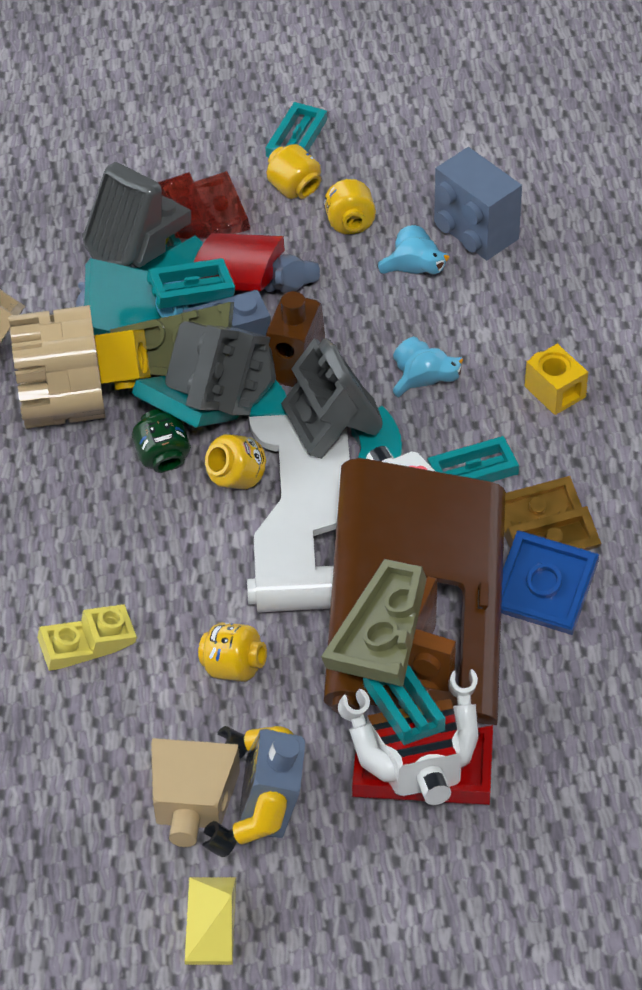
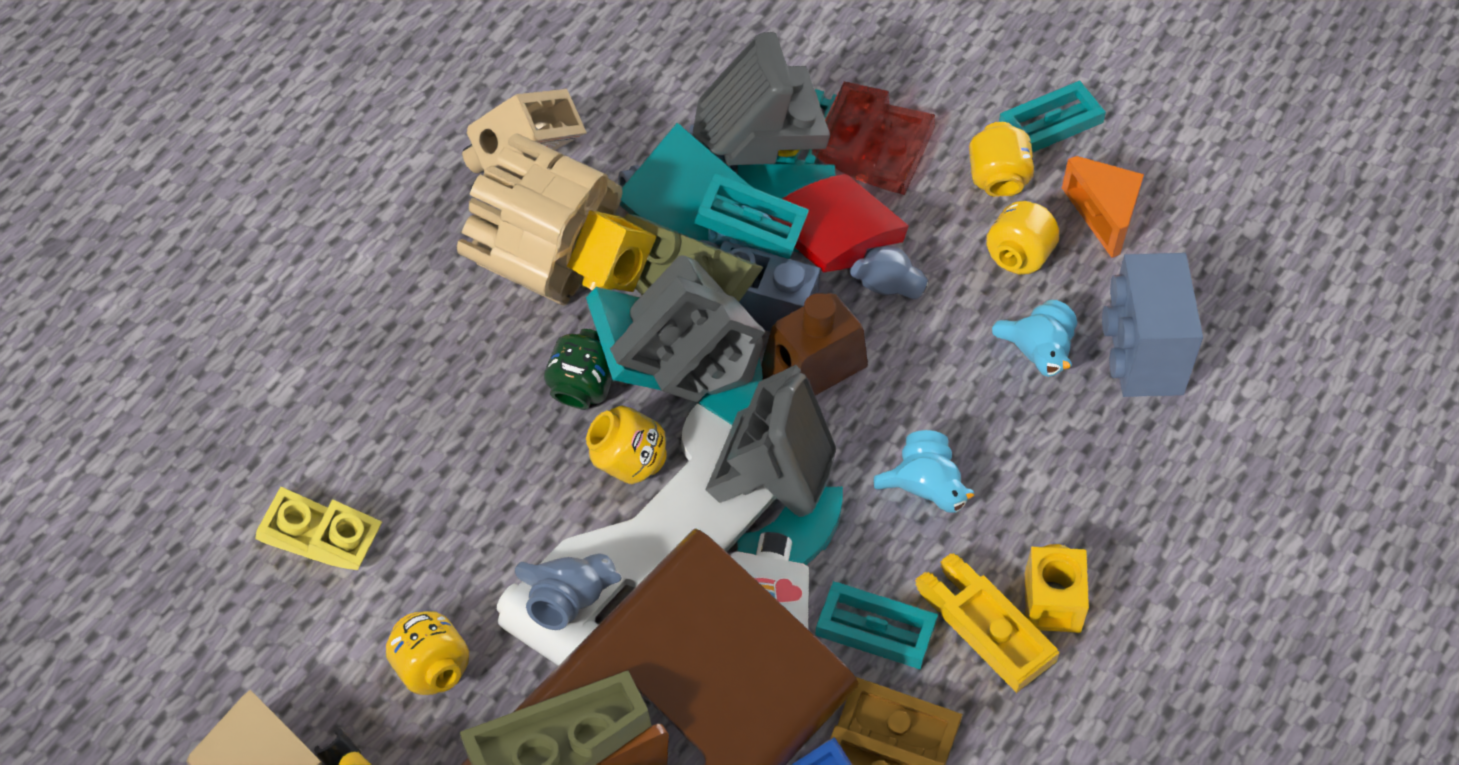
camera: 35 degrees right, 5 degrees up
(289, 552) = (565, 587): none -> sand blue animal
(376, 158) = (1103, 198): none -> orange slope
(532, 421) = (989, 623): none -> yellow hinge

